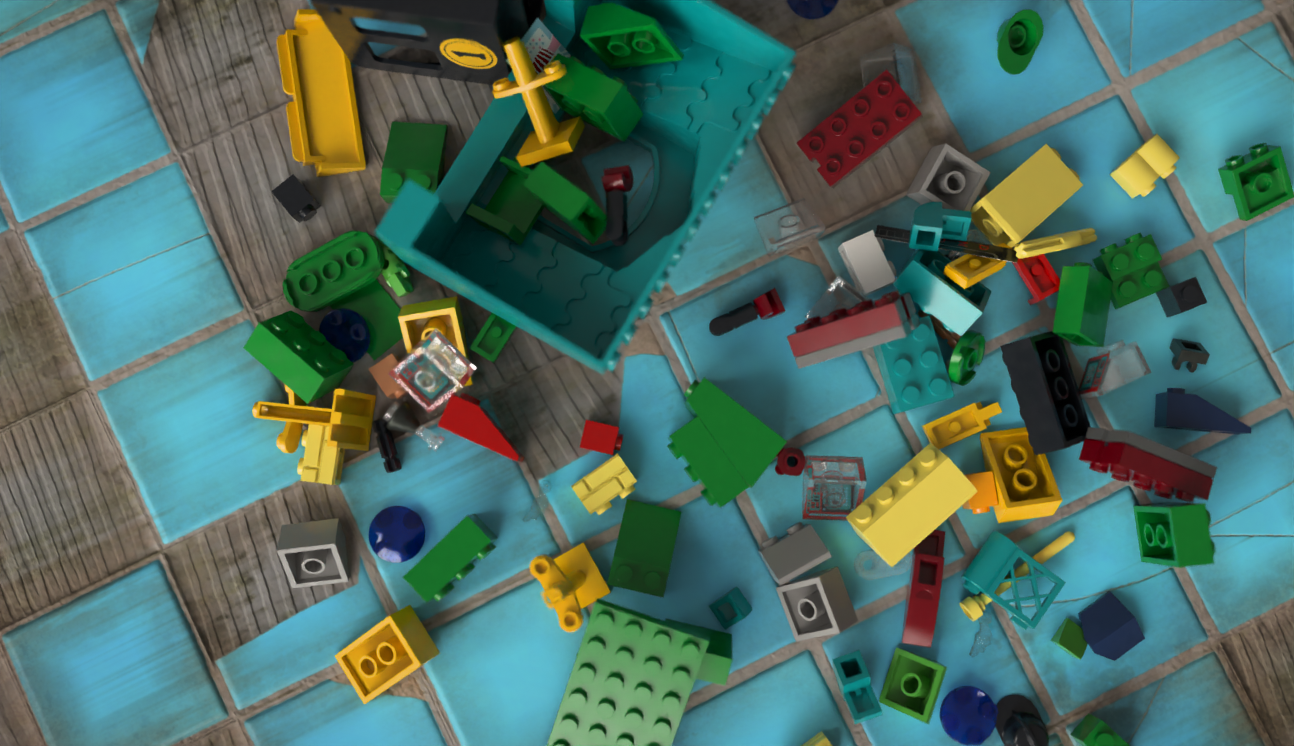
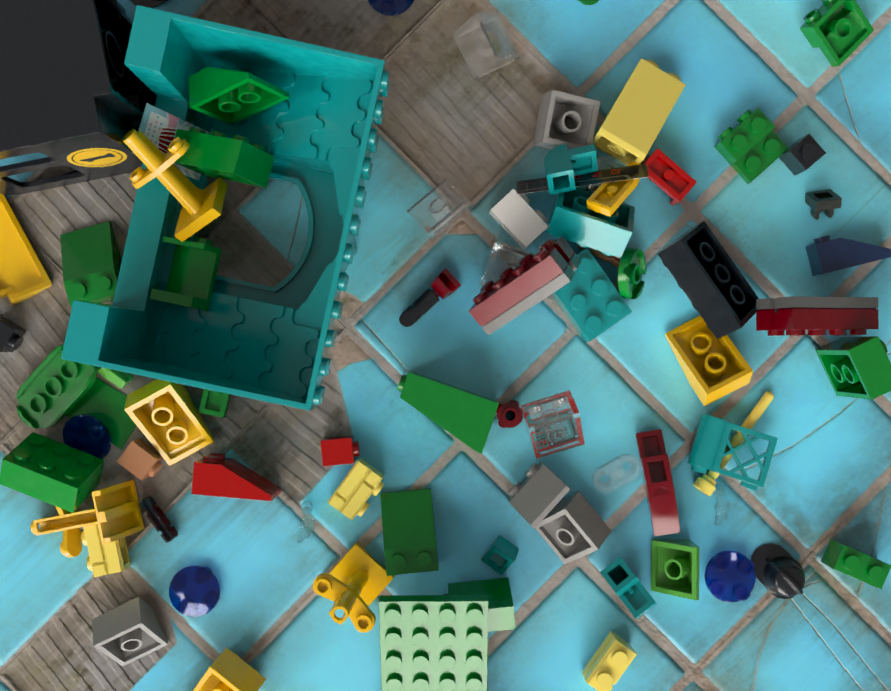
camera: 10 degrees left, 5 degrees up
(402, 418) = (163, 492): piece -> none
(433, 371) = (172, 445): clear slope -> none
(451, 559) = (246, 599): green brick -> none
(566, 202) = (231, 263): green brick -> none
(615, 183) = (268, 230): black piece -> none
(706, 463) = (436, 444): green brick -> none
(860, 129) = (472, 102): dark red piece -> none
(911, 504) = (624, 417): light yellow slope -> none
(960, 424) = (644, 332): yellow hinge -> none
(986, 492) = (678, 385): light orange brick -> none
(1055, 243) = (677, 145): light yellow axle -> none
(1070, 639) = (797, 482): bright green slope -> none
(1082, 305) = (718, 192): green brick -> none
(1110, 627) = (826, 461): dark blue slope -> none
(1112, 368) = (761, 240): clear slope -> none
(1145, 166) = (735, 47): light yellow brick -> none

